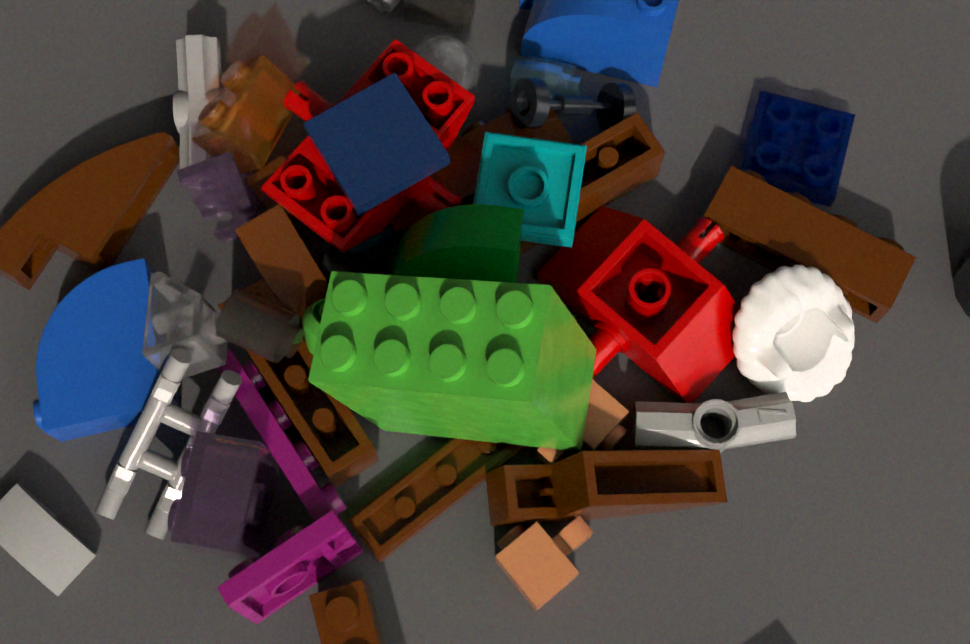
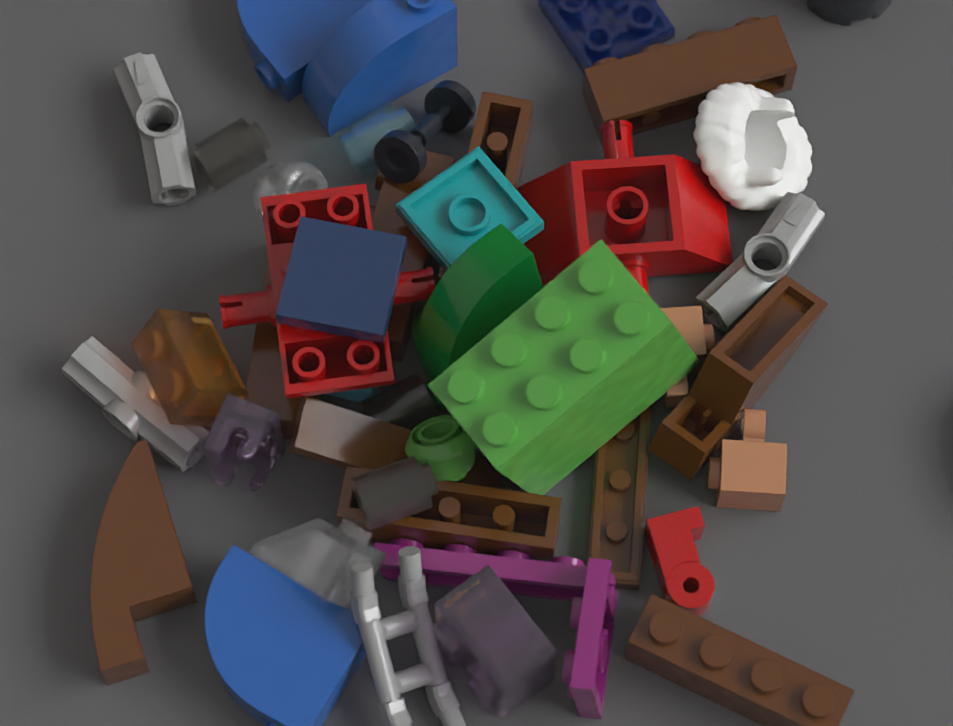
camera: 50 degrees left, 5 degrees down
(407, 591) = (676, 559): none -> red leg

